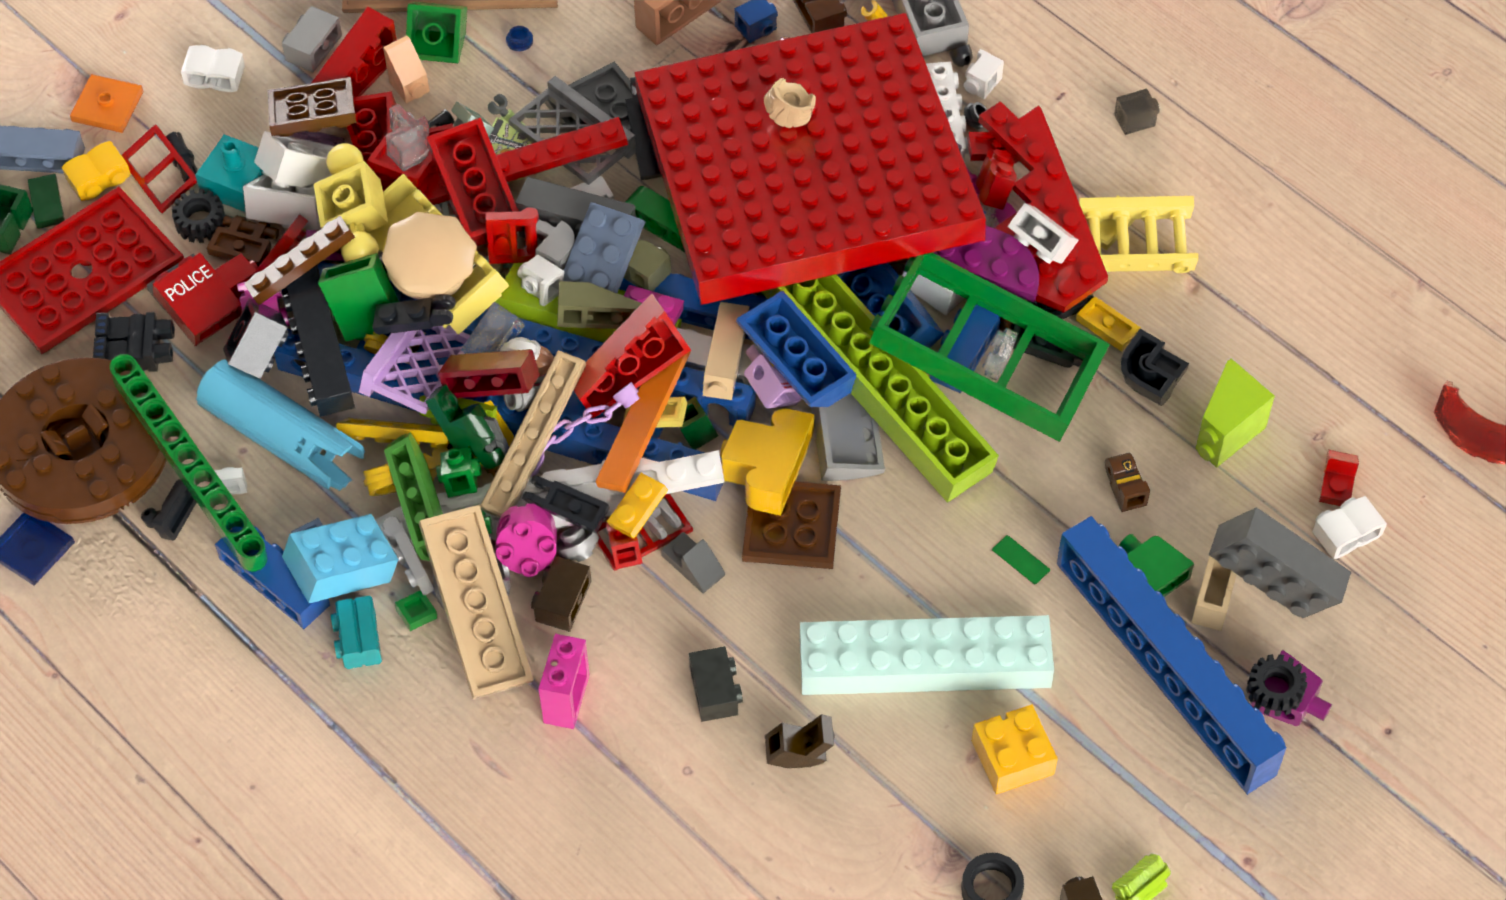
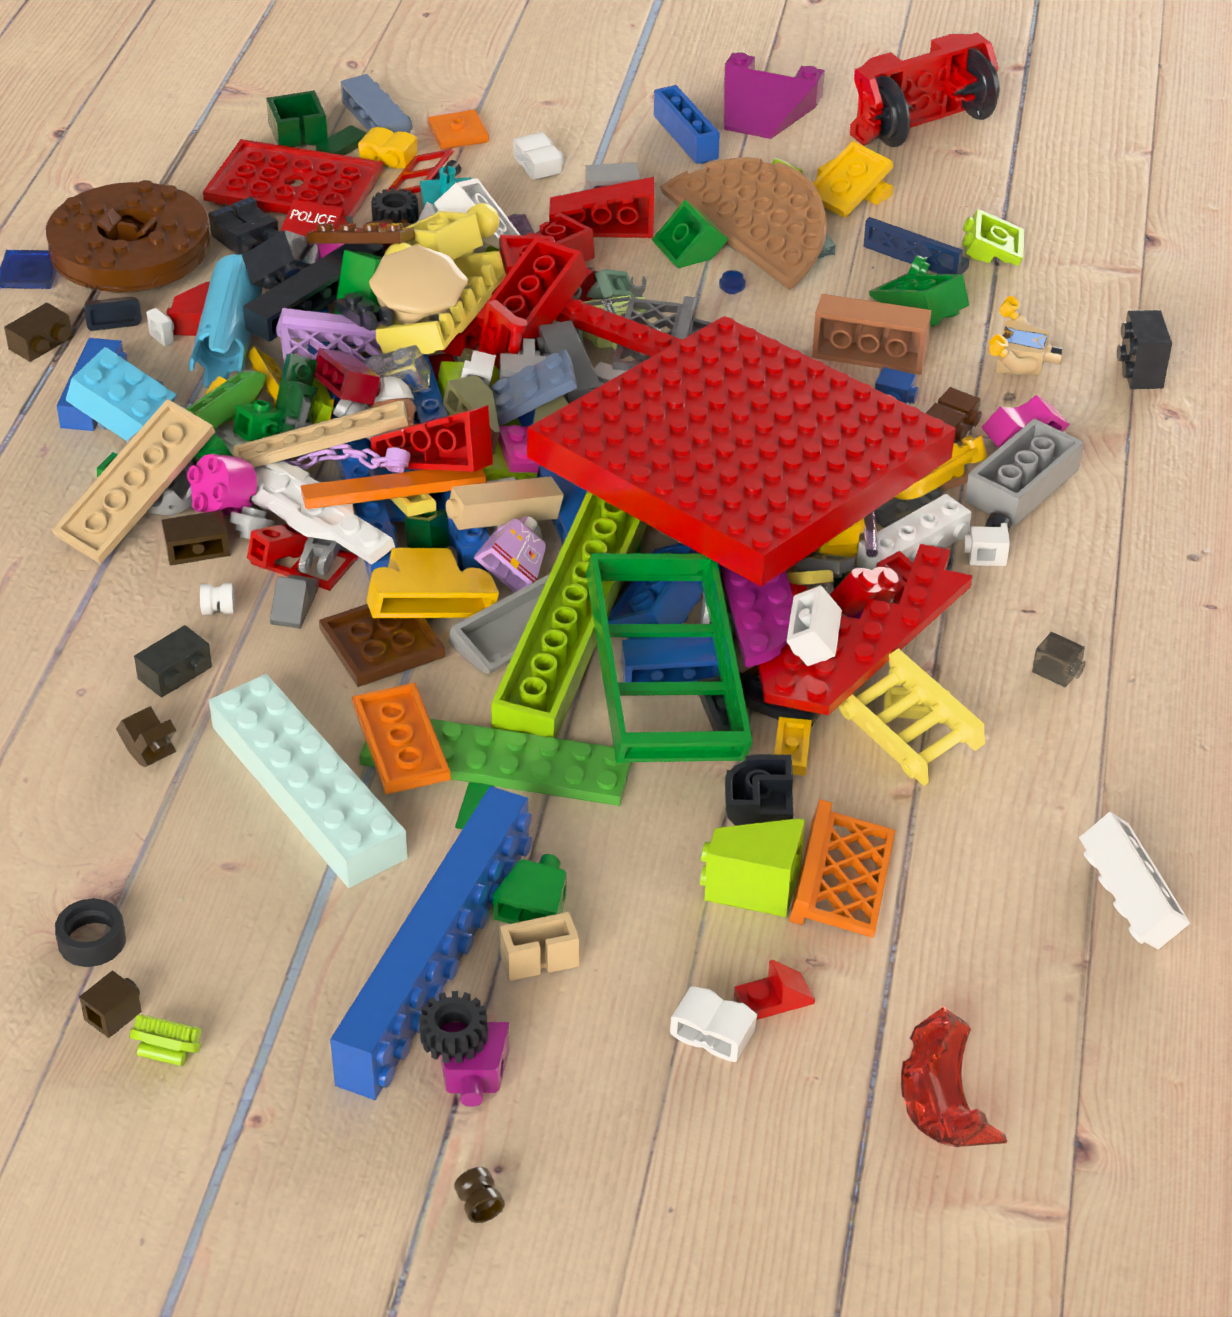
camera: 55 degrees right, 15 degrees down
(154, 581) = (38, 332): none -> dark brown brick
(193, 473) = (137, 279): green beam -> none
(227, 443) = (187, 310): none -> red slope
(311, 107) = (526, 192): reddish brown plate -> none
(357, 632) = (71, 448): teal brick -> none
(405, 70) = (629, 234): light nougat slope -> none
(408, 140) = (525, 233): clear brick -> none
(564, 684) = (101, 586): dark pink window -> none
(569, 504) = (270, 488): black hinge -> none
(637, 505) = (299, 522): yellow plate -> none
(655, 617) = (217, 599): none -> white wheel
(789, 104) = (763, 390): tan hair -> none
(798, 351) = (533, 538): blue slope -> none
(930, 568) = (400, 738): none -> orange tile
(979, 519) = (528, 762): none -> bright green plate
(996, 360) = (672, 669): clear plate -> none
(1014, 749) = (248, 880): yellow piece -> none
(1126, 482) = (621, 834): reddish brown leg -> none
(1213, 361) = (813, 870): none -> orange fence
(1279, 563) = (591, 959): dark grey brick -> none
(1383, 208) = (1133, 881): none -> white brick
(1413, 752) = (480, 1197): none -> dark brown wheel

